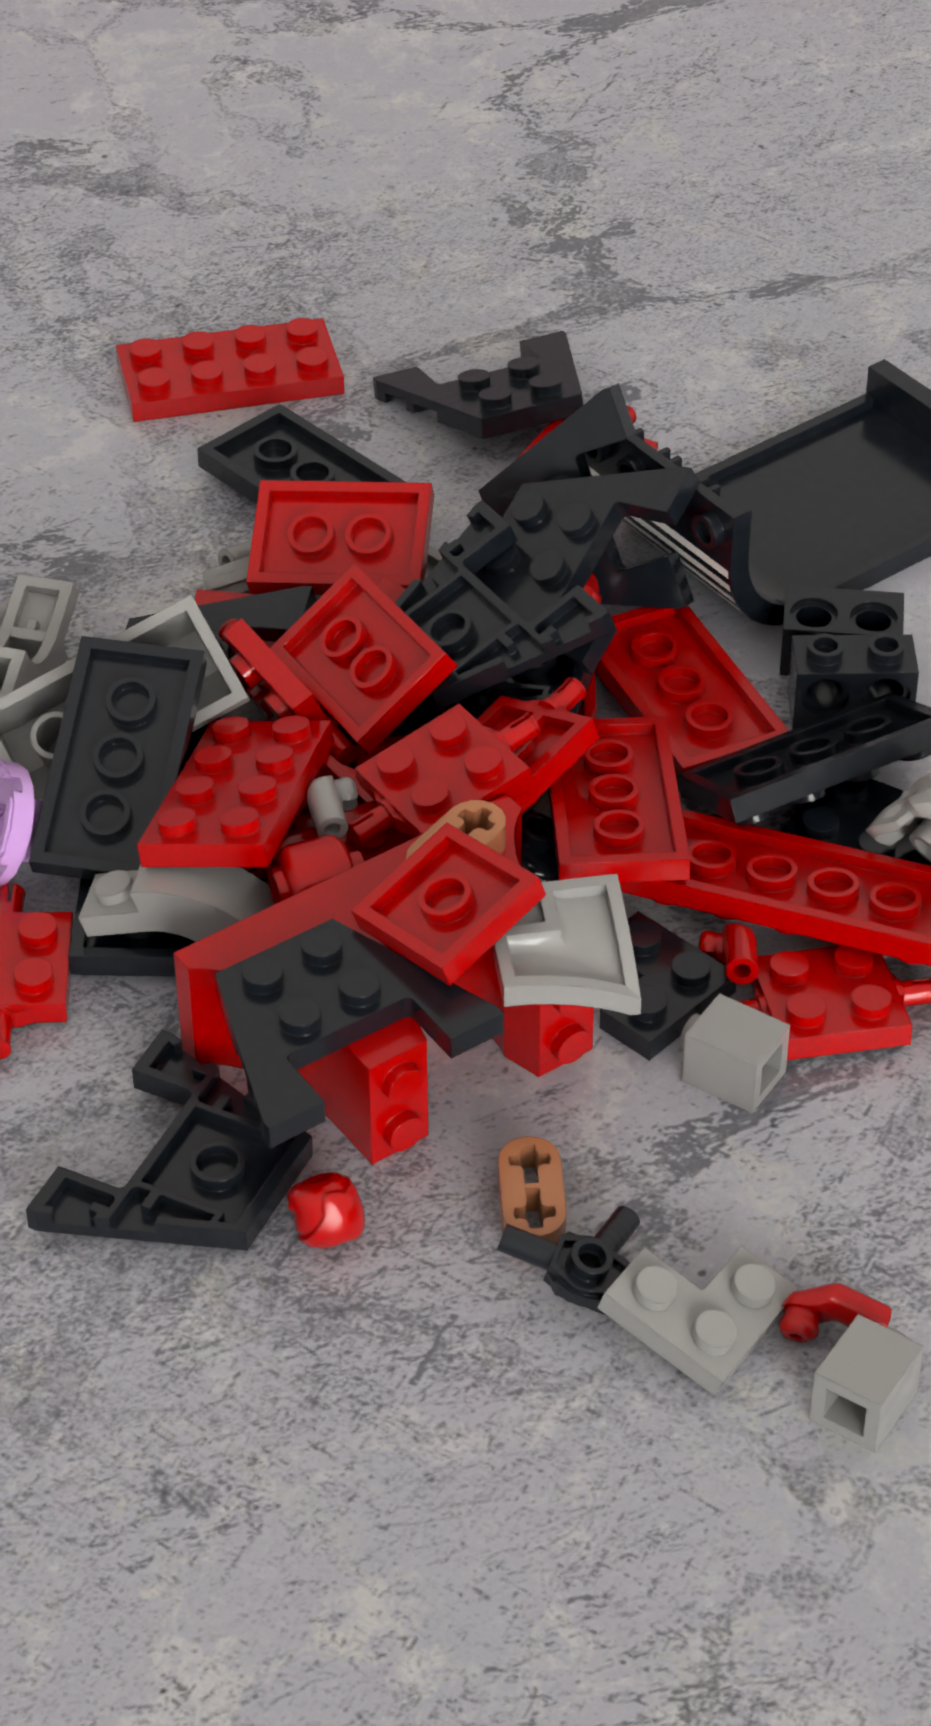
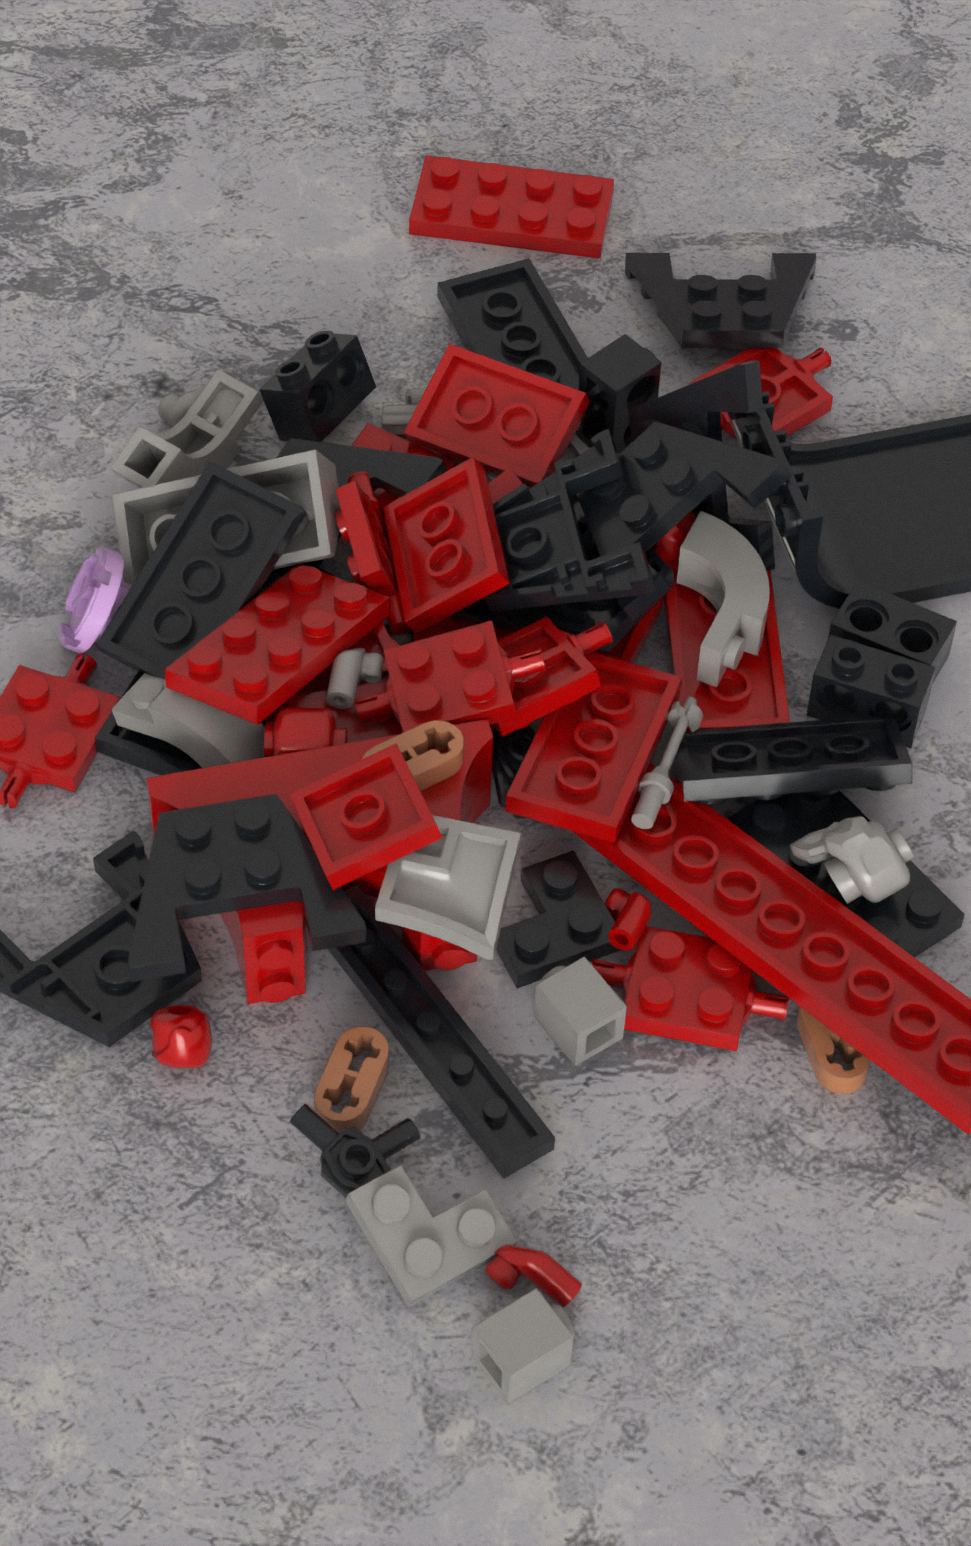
camera: 20 degrees right, 10 degrees up
(128, 567) = (318, 387): none -> black brick
(457, 467) = (616, 381): none -> black brick
(609, 1131) = (443, 1045): none -> black plate
(670, 621) = (734, 579): none -> light grey arch
(699, 817) = (656, 786): none -> light grey piece

